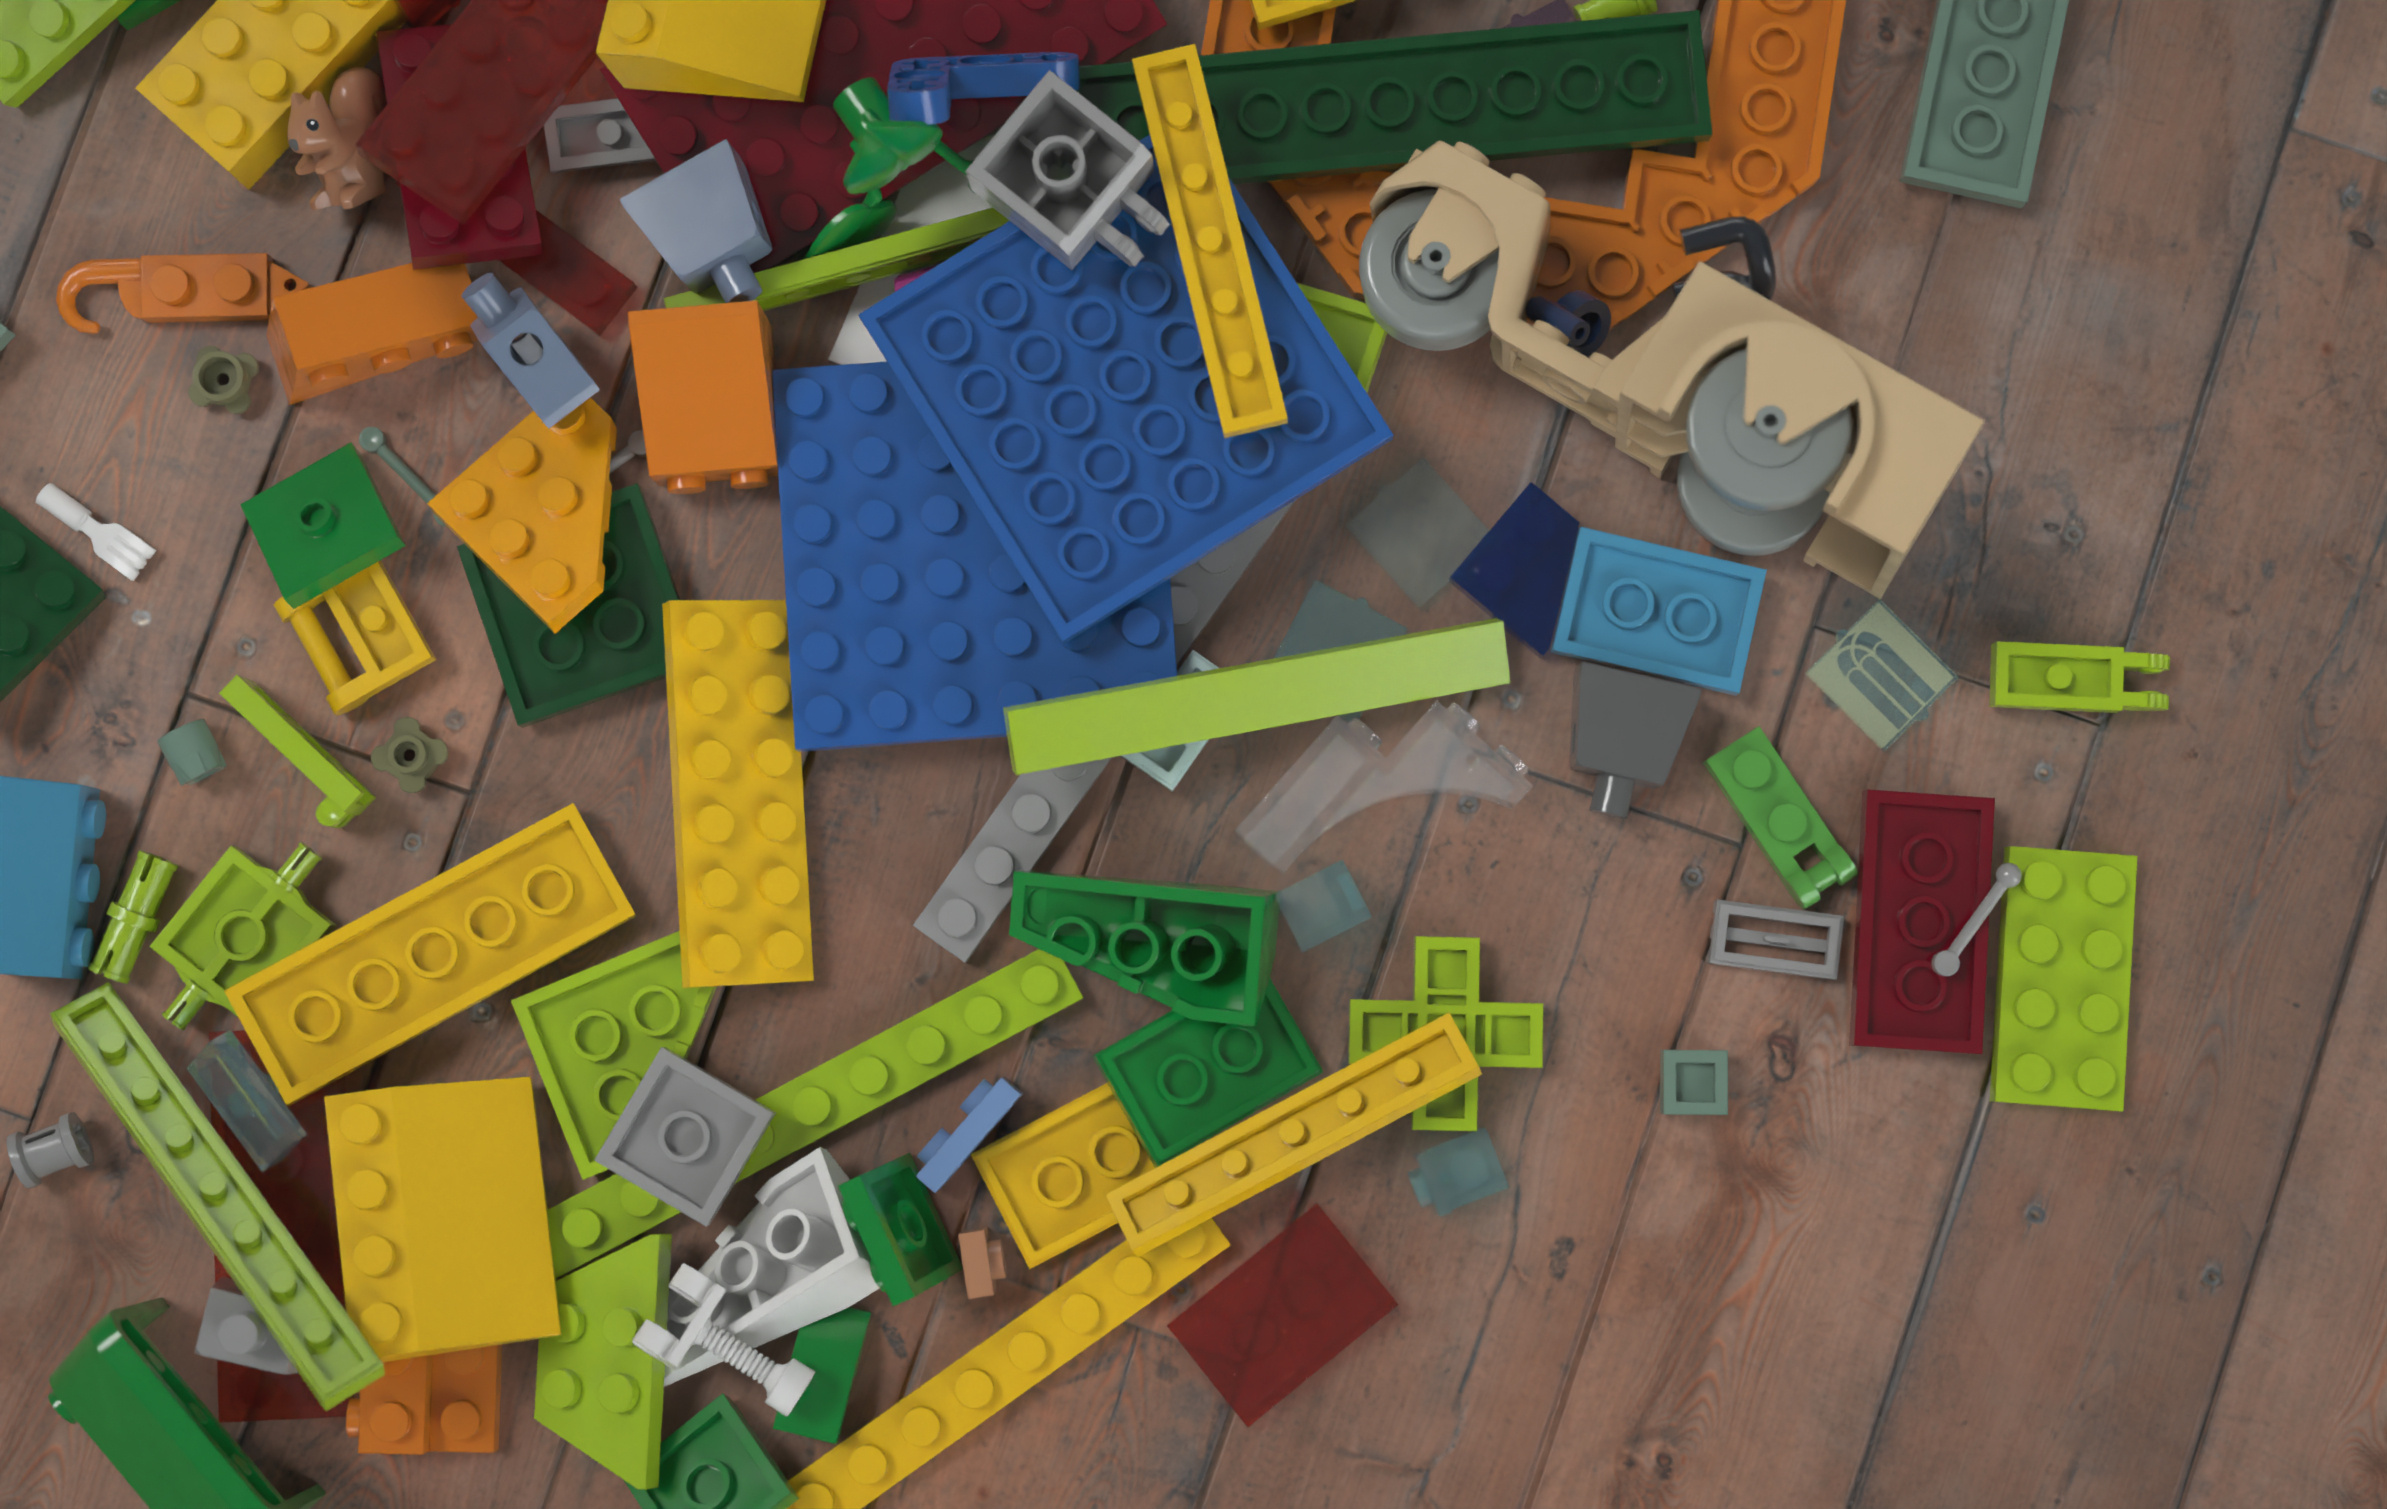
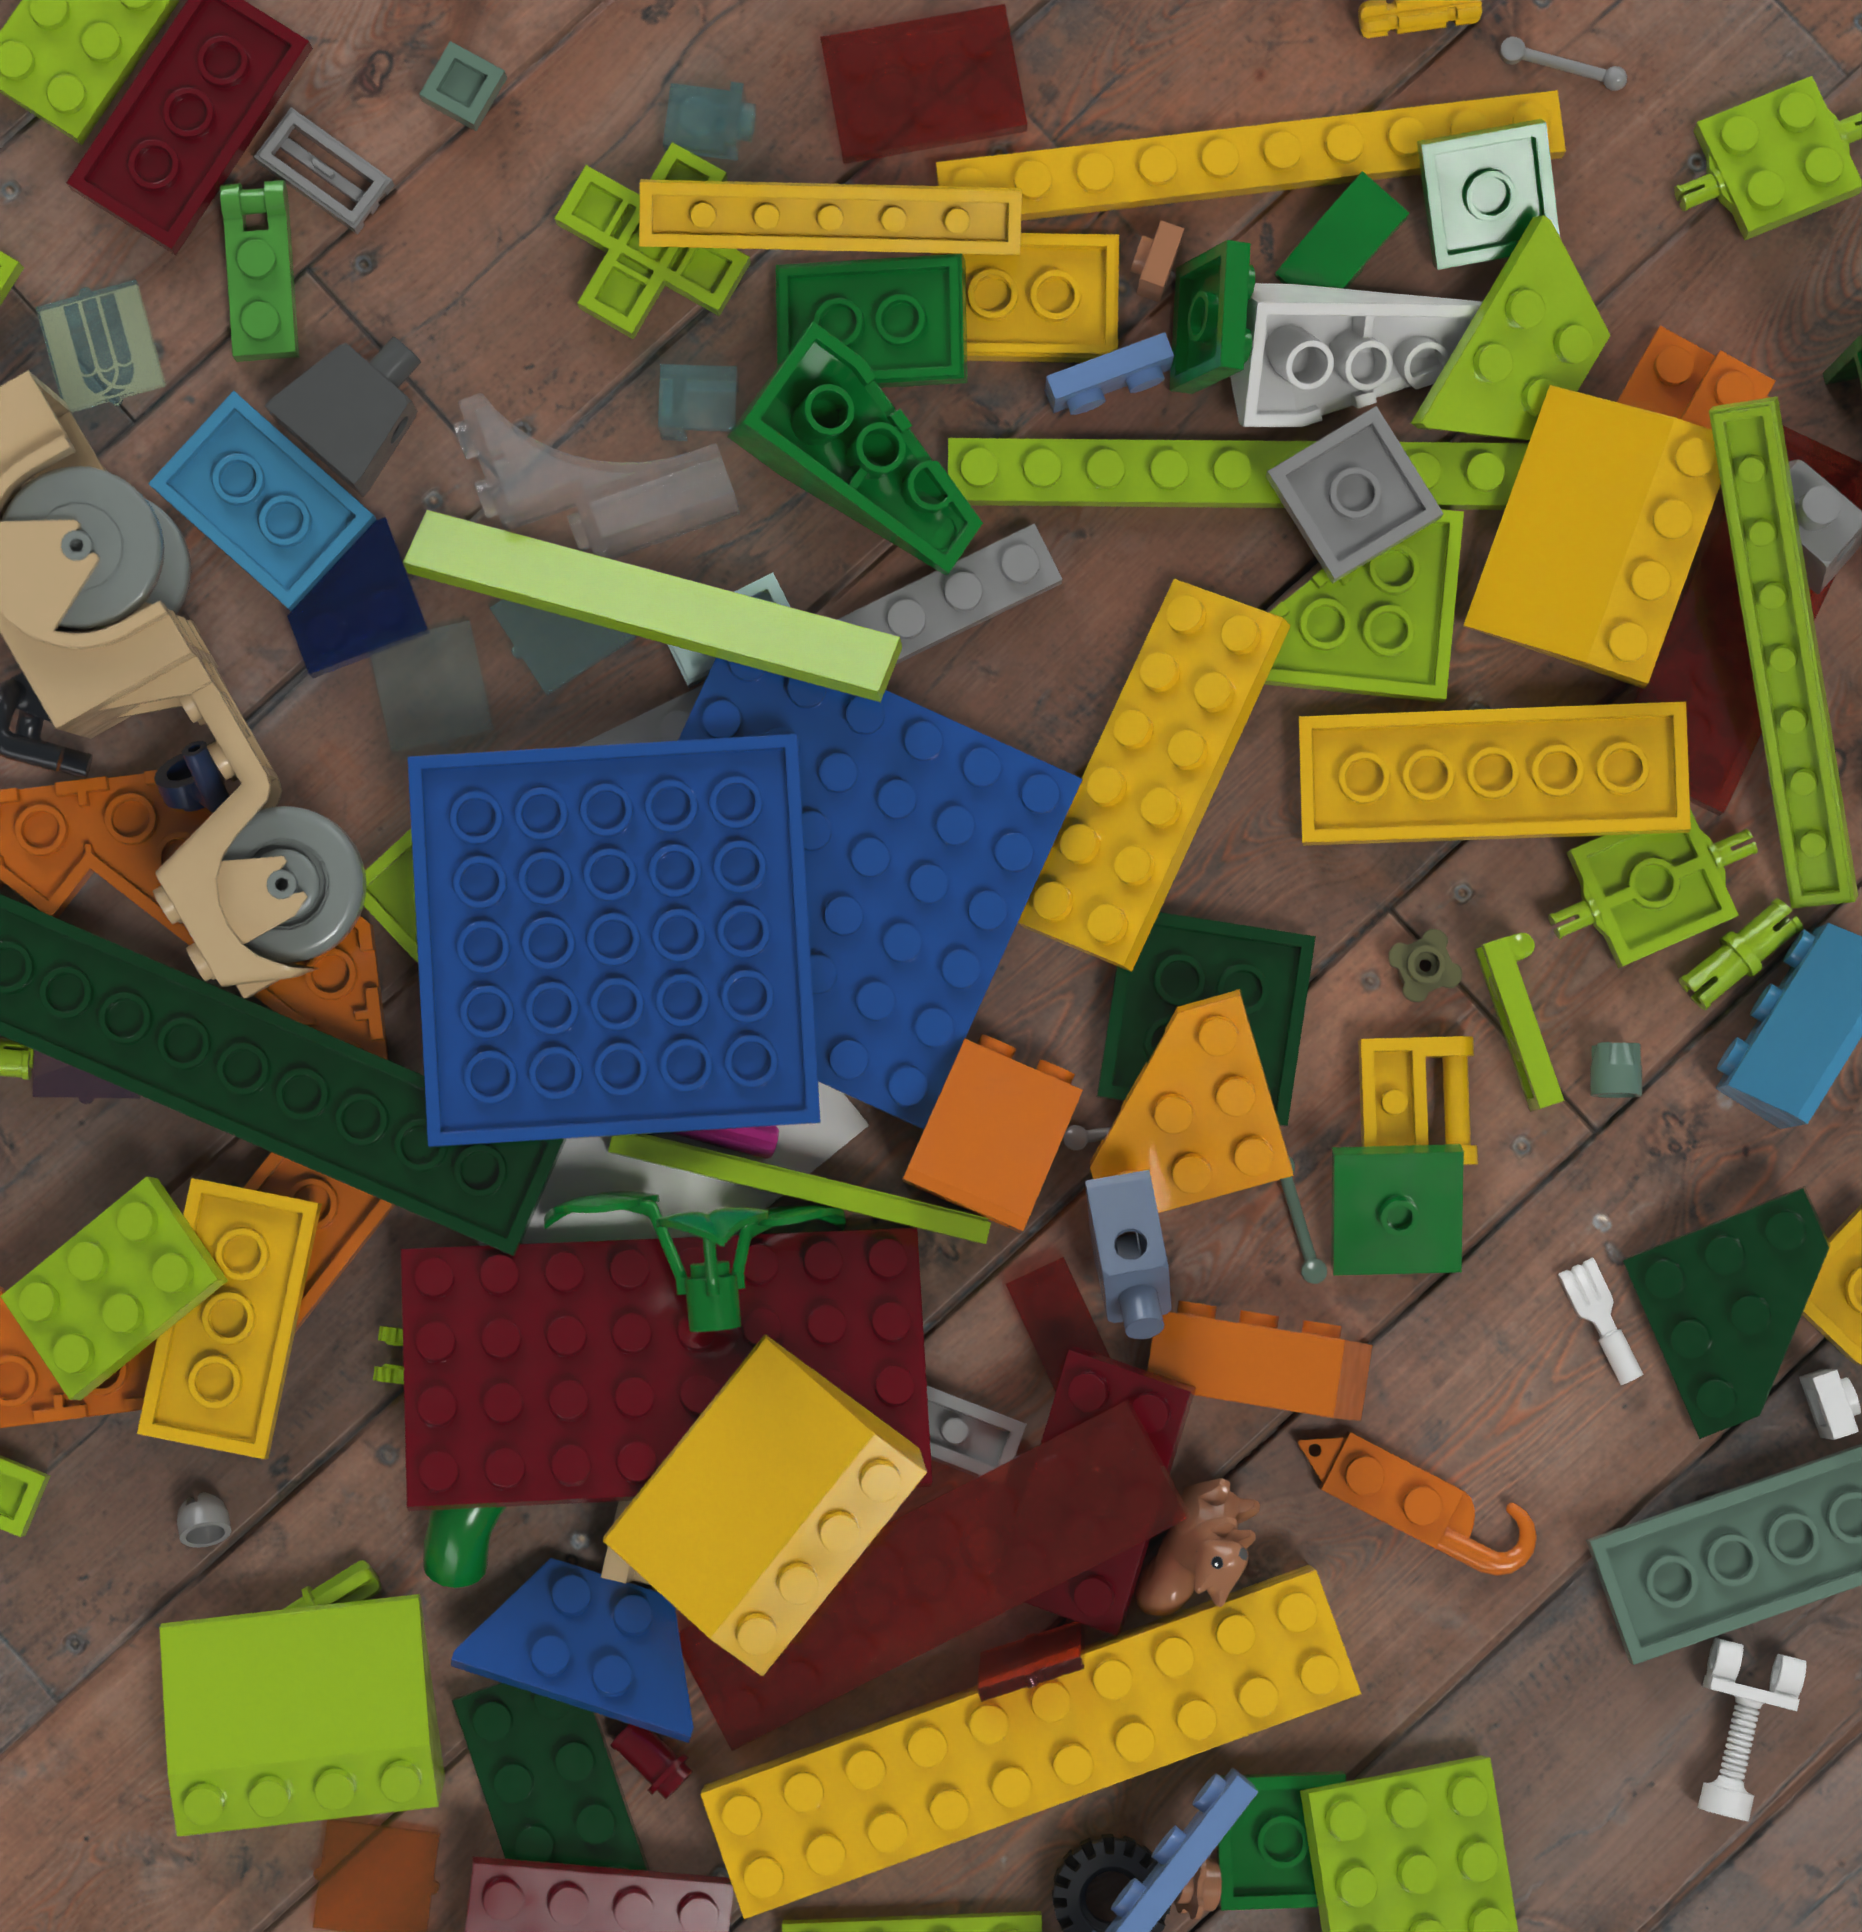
camera: 150 degrees left, 0 degrees up
(210, 366) = (1437, 1396): olive plate -> none
(246, 1100) = (1719, 727): clear light blue plate -> none
(705, 222) = (912, 1280): sand blue torso -> none
(782, 1382) = (1378, 239): white bar -> none
(924, 86) = (638, 1295): blue beam -> none
(1075, 212) = (530, 1120): light grey hinge -> none
(1209, 241) = (472, 1011): yellow plate -> none
(1947, 962) = (188, 66): light grey hinge -> none

